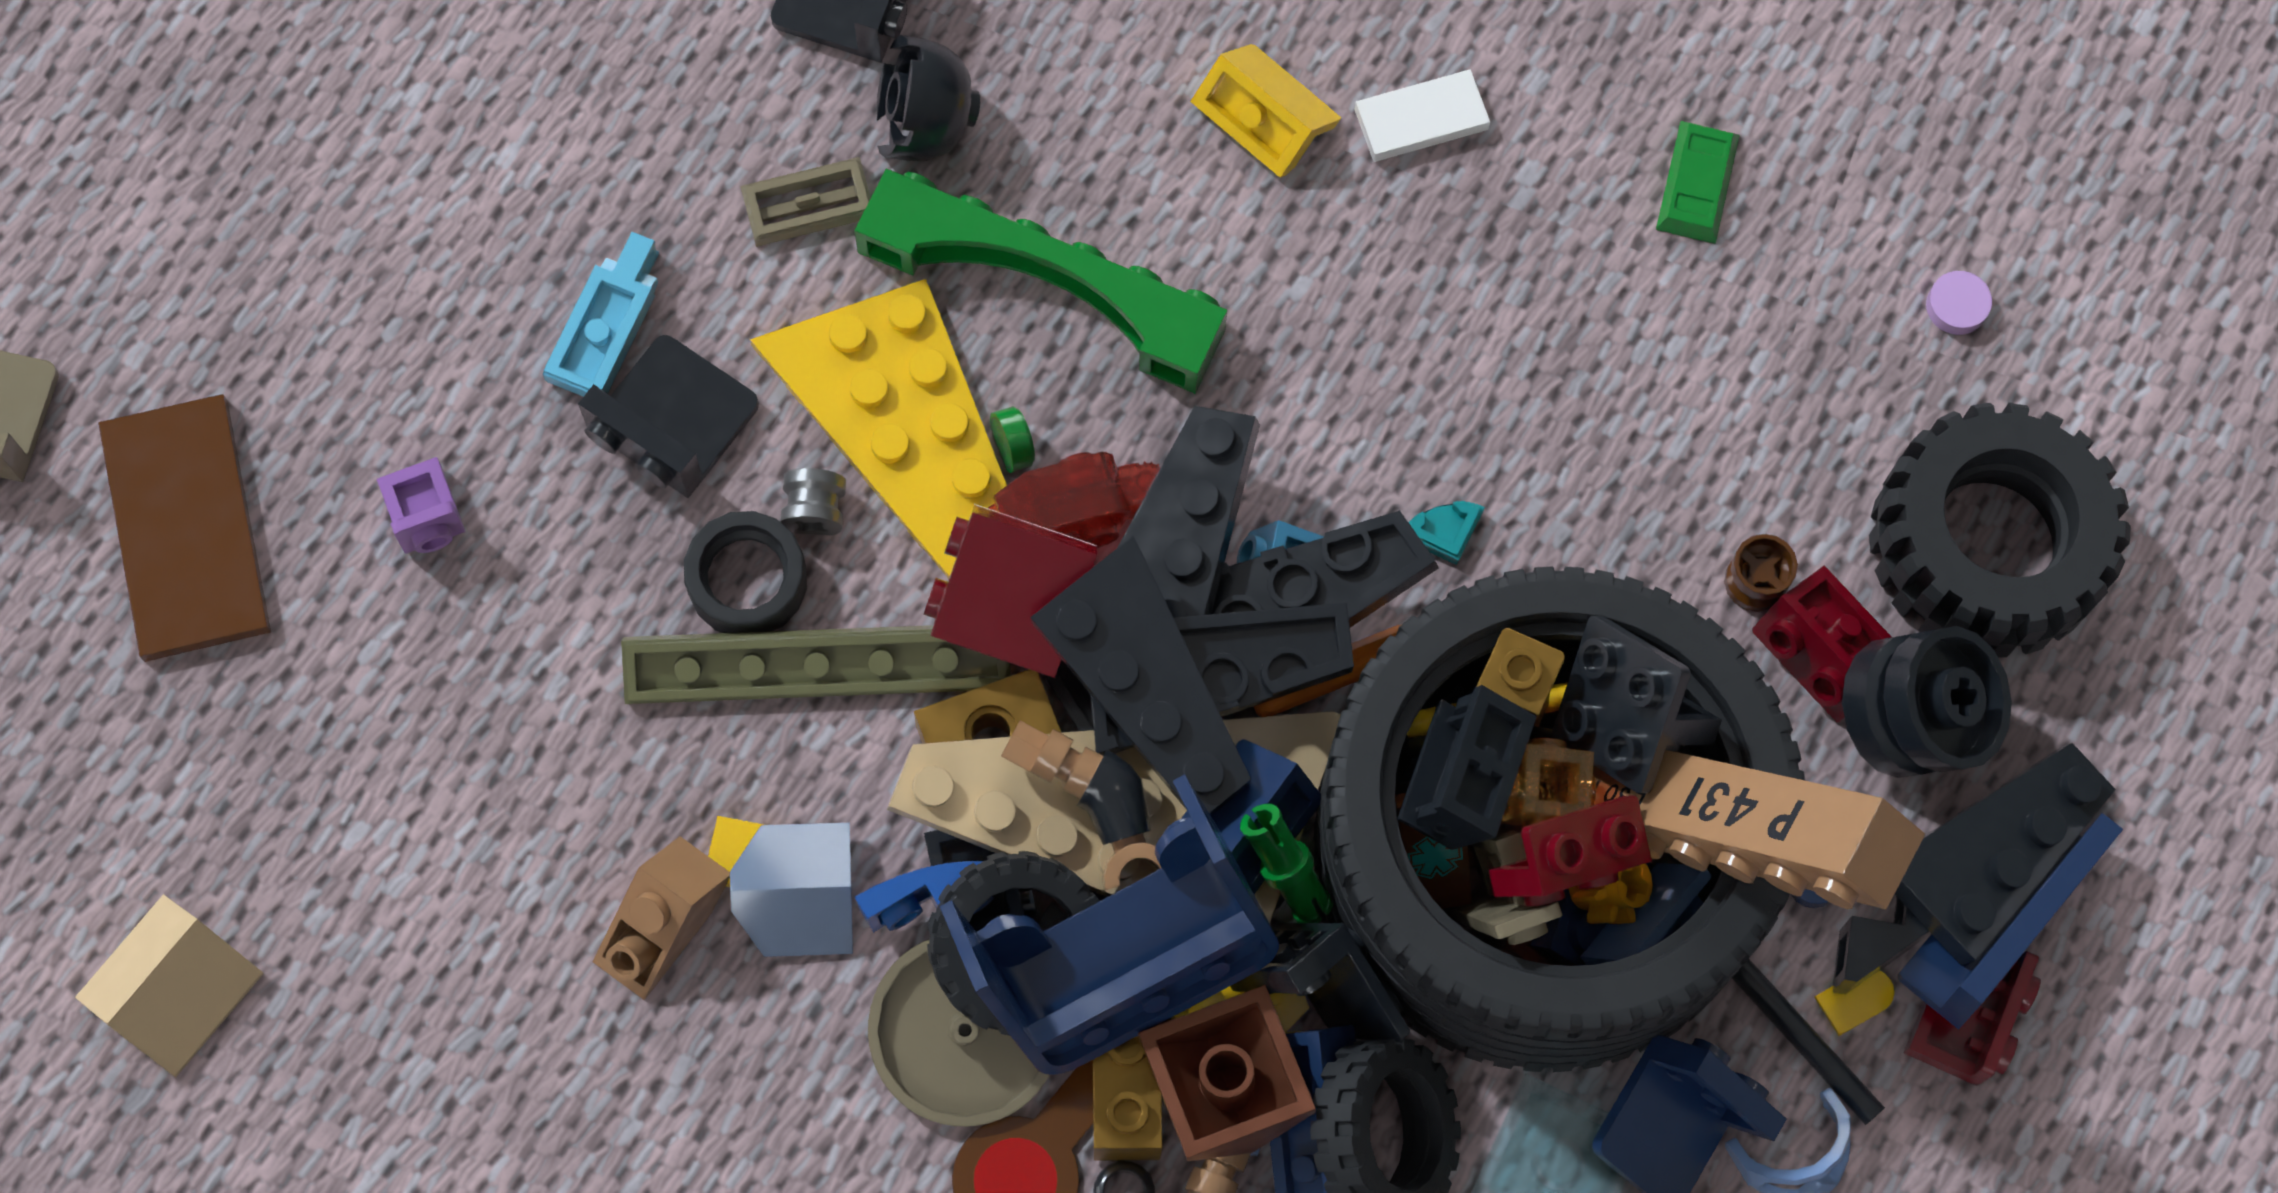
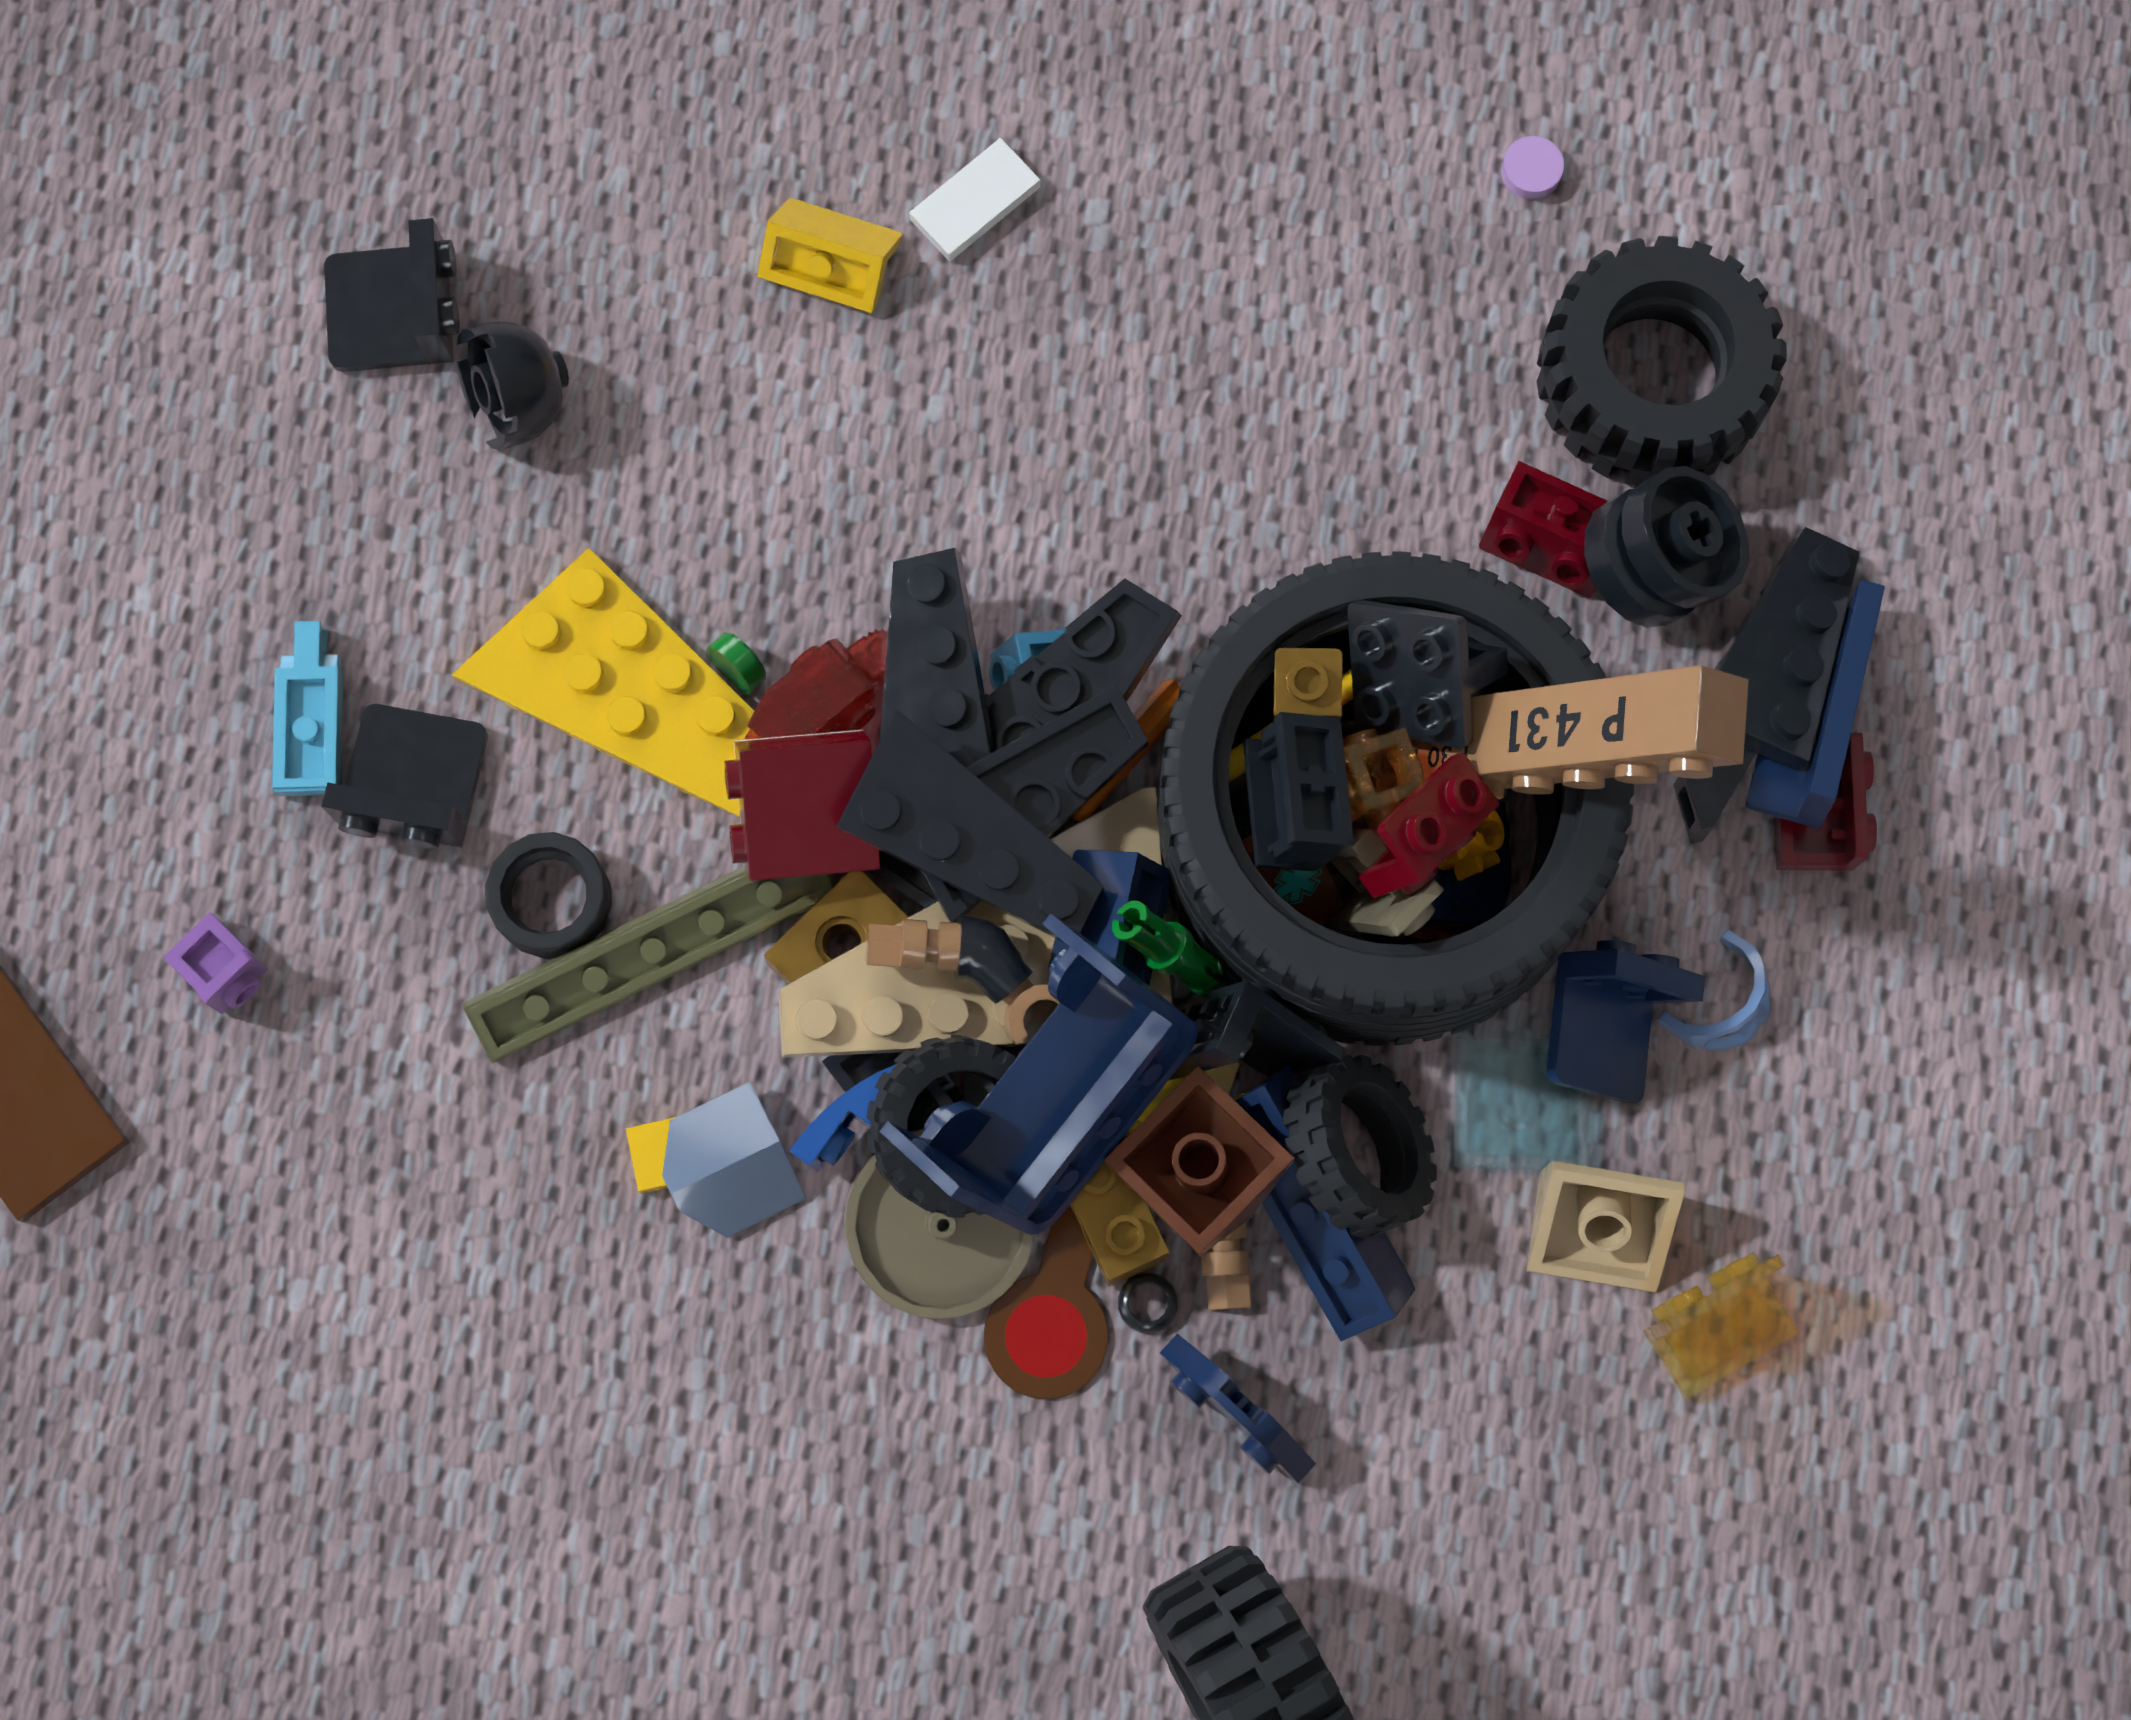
camera: 20 degrees left, 5 degrees up
(169, 985) = (189, 1511): tan slope -> none
(660, 915) = (616, 1243): medium nougat slope -> none
(812, 222) = (459, 539): dark tan tile -> none
(813, 501) = (580, 800): flat silver wheel -> none
(919, 225) = (560, 499): green arch -> none
(1447, 528) = (1168, 572): teal tile -> none
(1670, 906) = (1522, 854): medium blue panel -> none
(1697, 182) = (1251, 155): green tile -> none
(1769, 562) = (1470, 479): reddish brown wheel -> none
(1808, 1042) = (1698, 901): black bar -> none
(1859, 1004) = (1719, 845): yellow piece -> none

